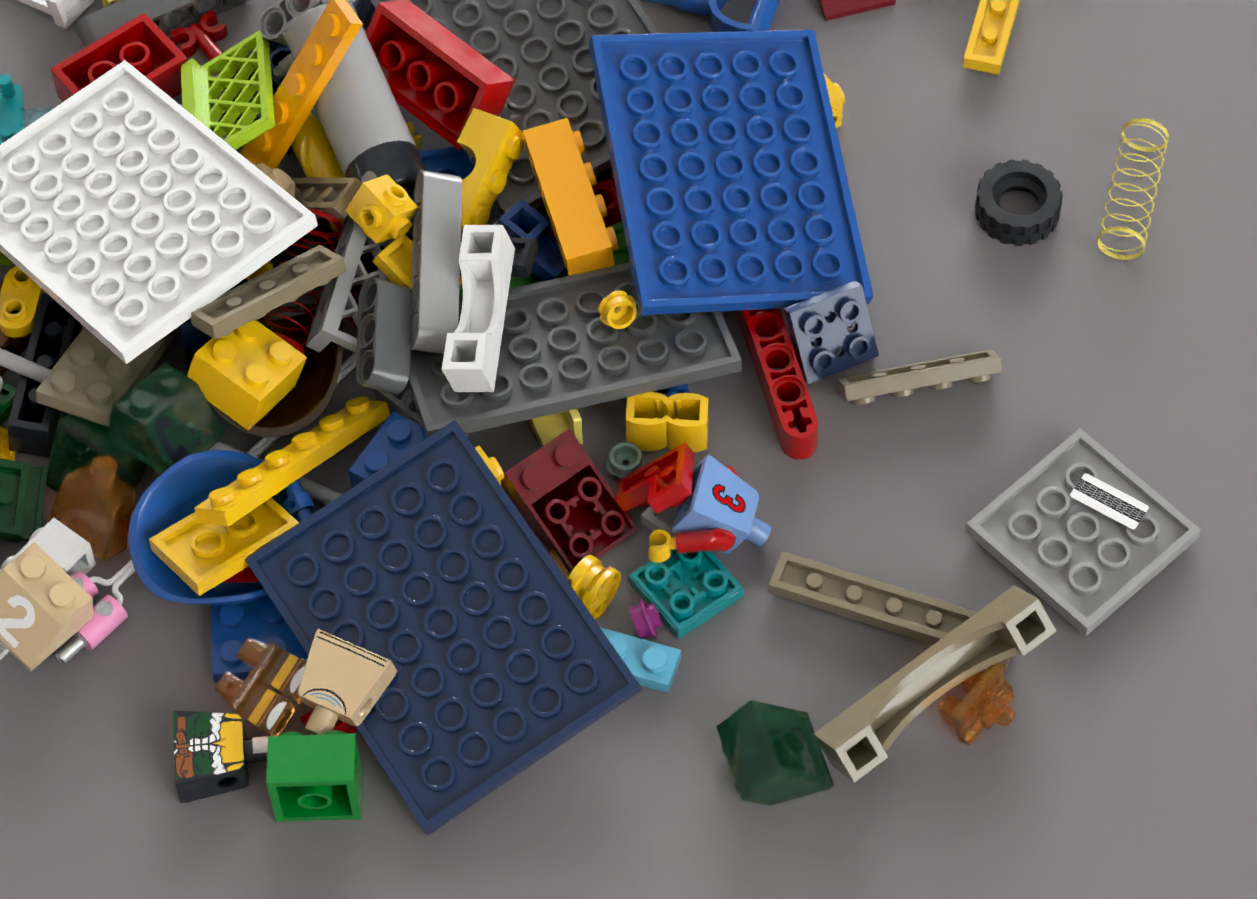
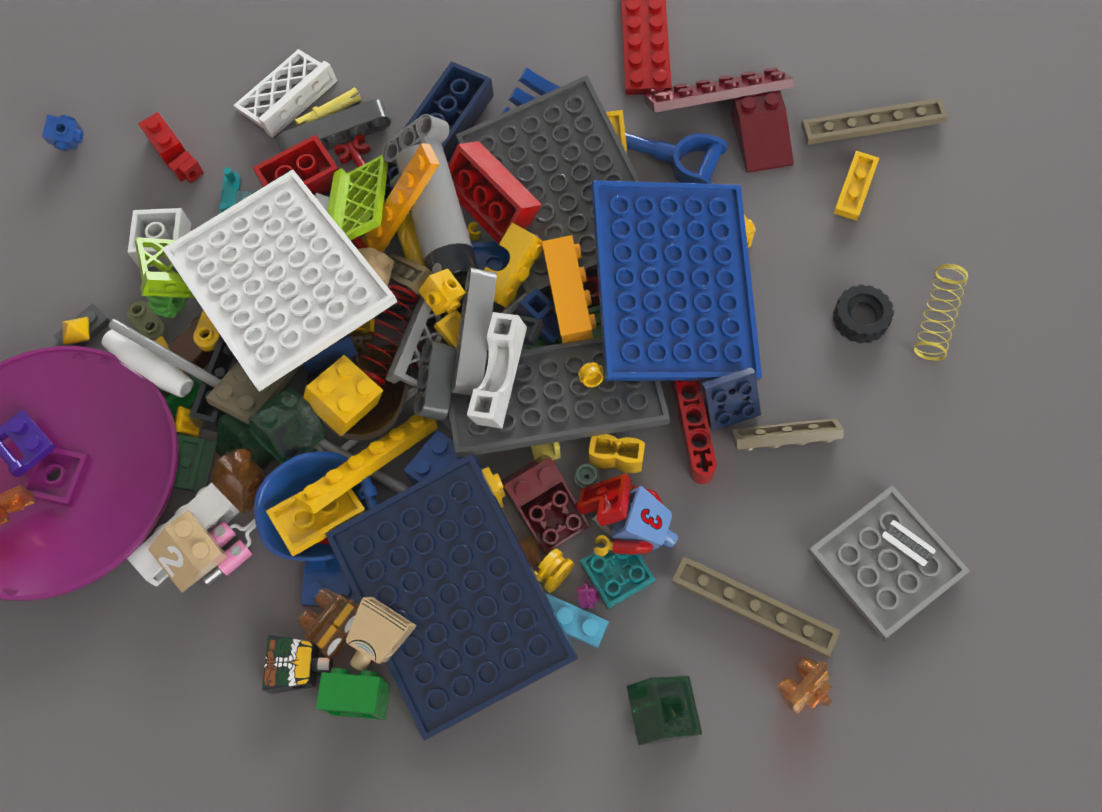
camera: 10 degrees right, 10 degrees up
(268, 291) = (360, 345): dark tan plate -> none
(864, 731) = (826, 641): dark tan arch -> none

